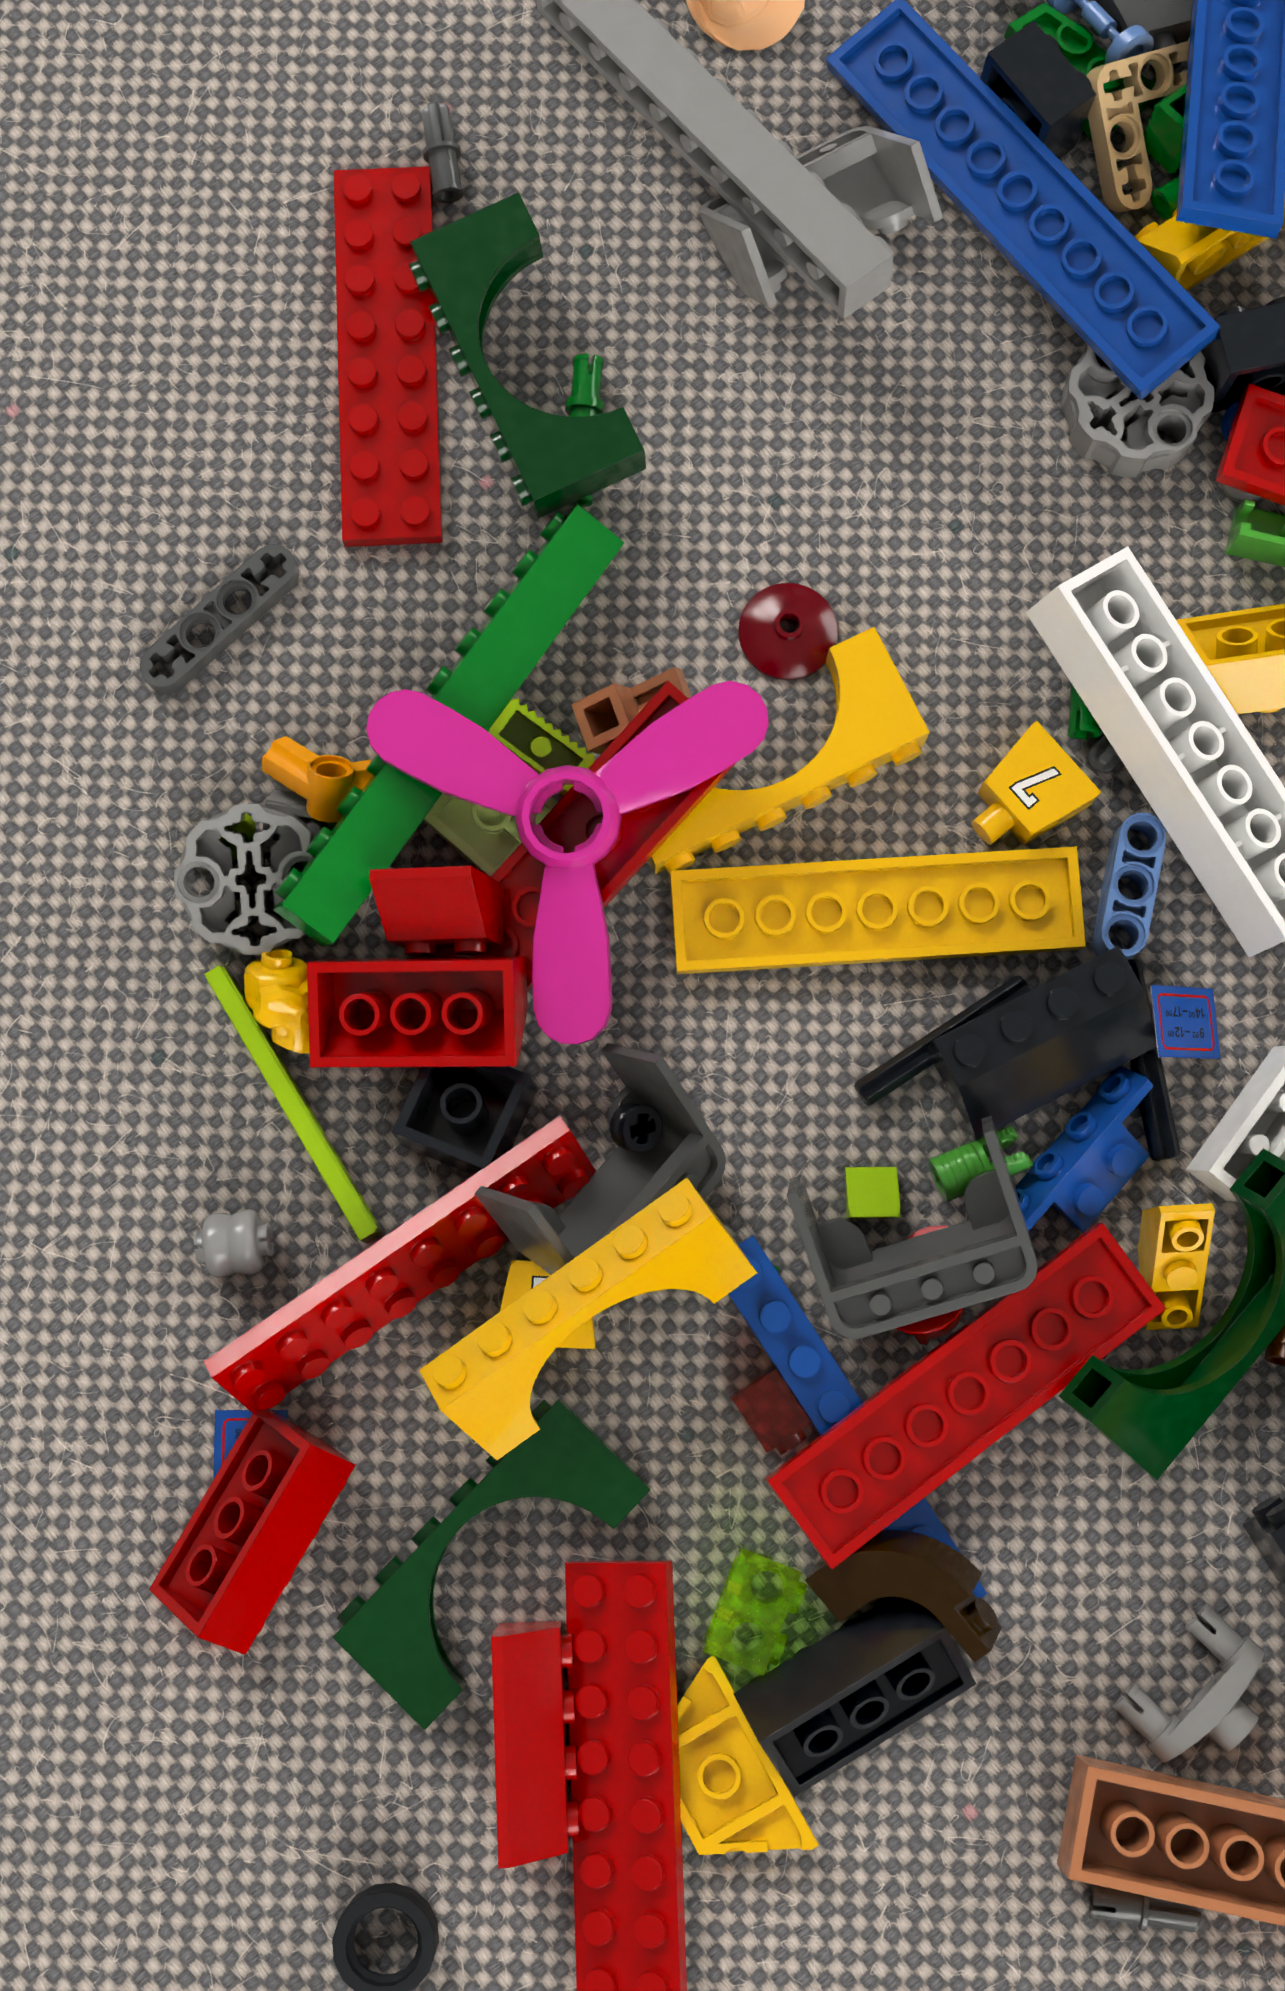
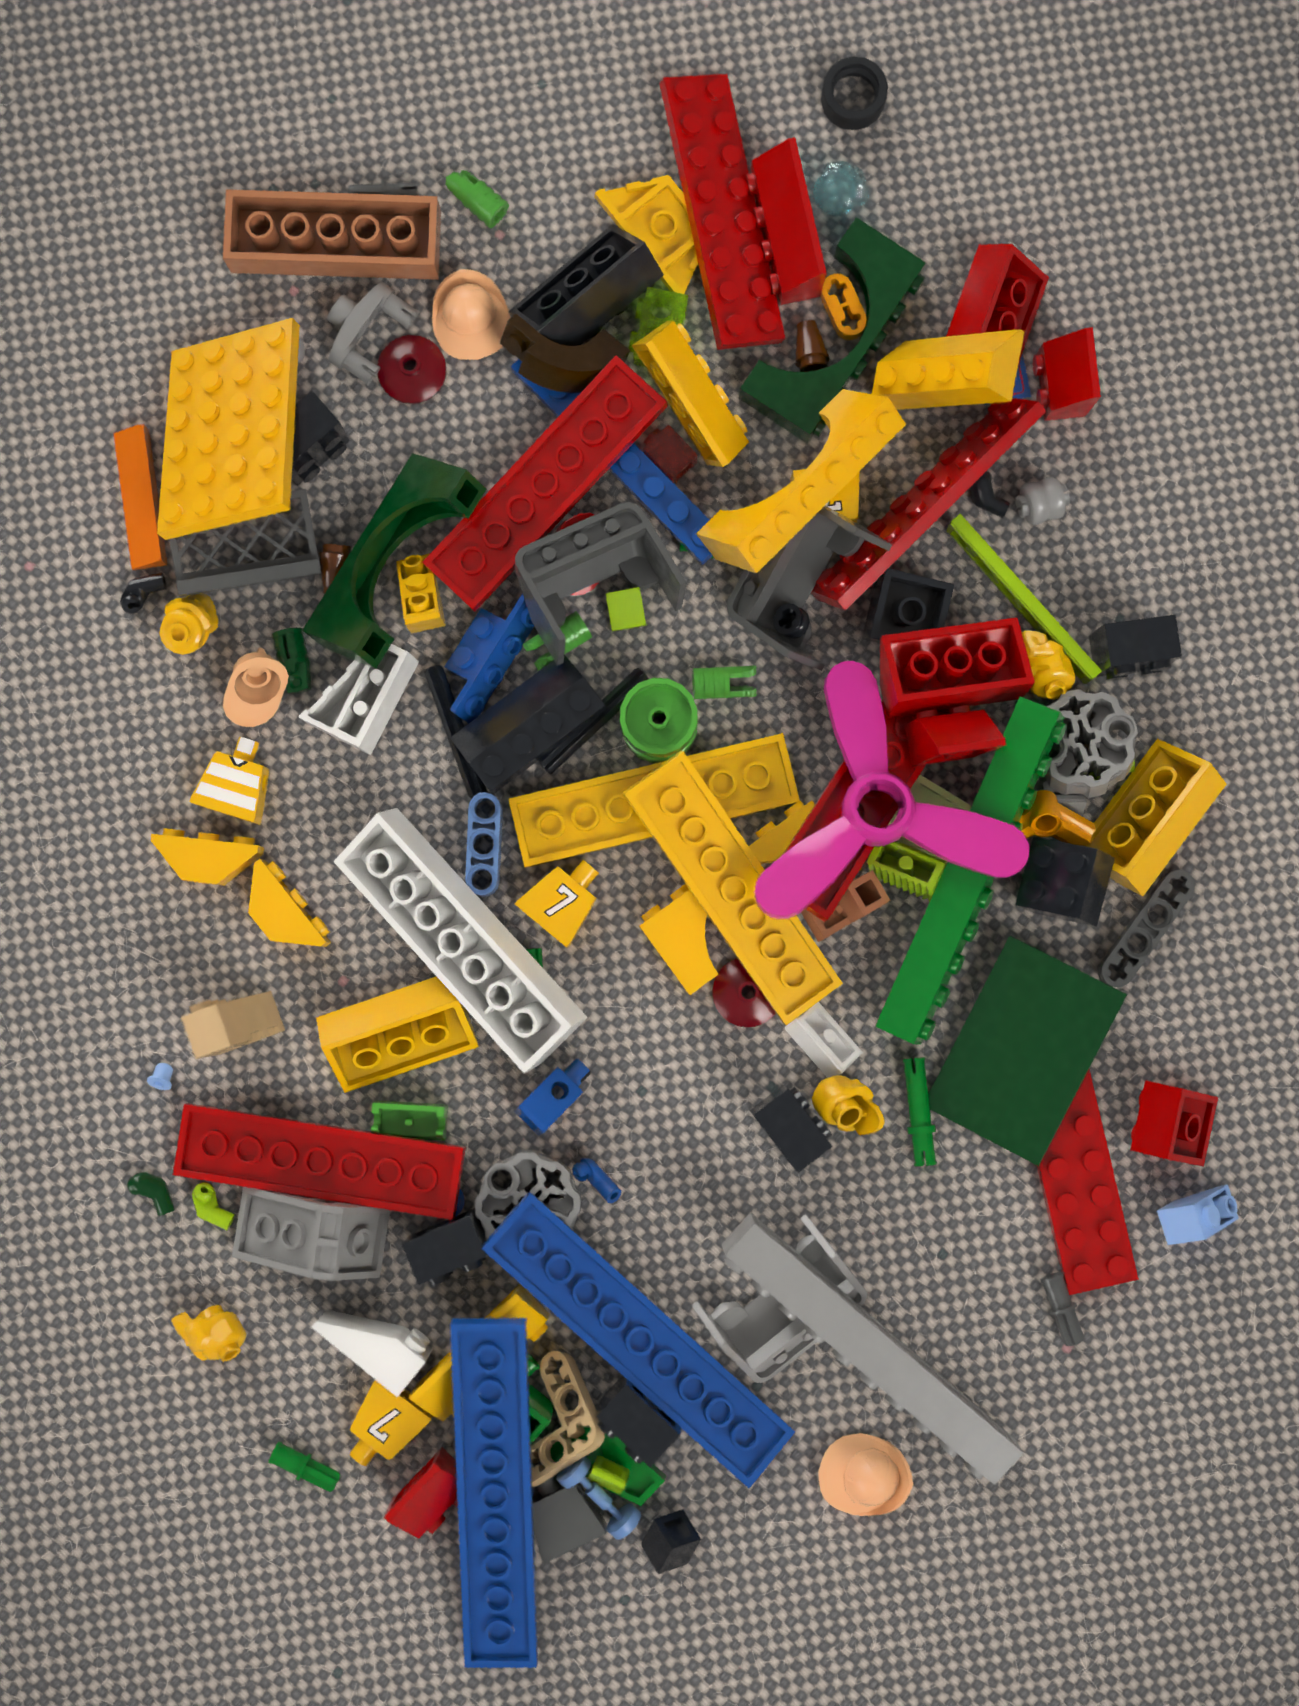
camera: 165 degrees right, 5 degrees up
(147, 998) = (1136, 646): none -> black brick
(157, 1423) = (1067, 375): none -> red slope
(177, 766) = (1155, 813): none -> yellow slope
(236, 233) = (1198, 1215): none -> light blue slope
(243, 354) = (1173, 1123): none -> red slope
(311, 1259) = (984, 497): none -> black arm
(320, 688) = (1065, 881): none -> black brick
(331, 1455) = (950, 370): none -> yellow slope
(407, 491) = (1024, 1050): none -> dark green piece
(438, 1784) = (840, 189): none -> clear light blue head
(455, 1601) = (850, 304): none -> light orange beam
(530, 1539) = (810, 348): none -> reddish brown cone
(552, 454) = (1027, 1203): dark green arch -> none
(682, 450) = (847, 1105): none -> yellow head
(694, 548) = (823, 1040): none -> white slope
(725, 1489) = (691, 393): none -> yellow slope
(761, 1060) = (715, 682): none -> bright green hinge
(764, 428) = (791, 1127): none -> black brick
(802, 768) = (723, 879): none -> yellow plate
(876, 1037) = (658, 699): none -> bright green wheel
(999, 1876) = (477, 197): none -> bright green hinge
(1034, 418) = (589, 1170): none -> blue arm
(1036, 1686) = (469, 315): none -> light nougat hat
(1082, 39) = (609, 1474): none -> lime slope
(1101, 510) = (542, 1108): none -> blue torso
(1109, 1613) = (413, 385): none -> dark red dish
(1185, 1022) = (433, 758): blue sticker -> none

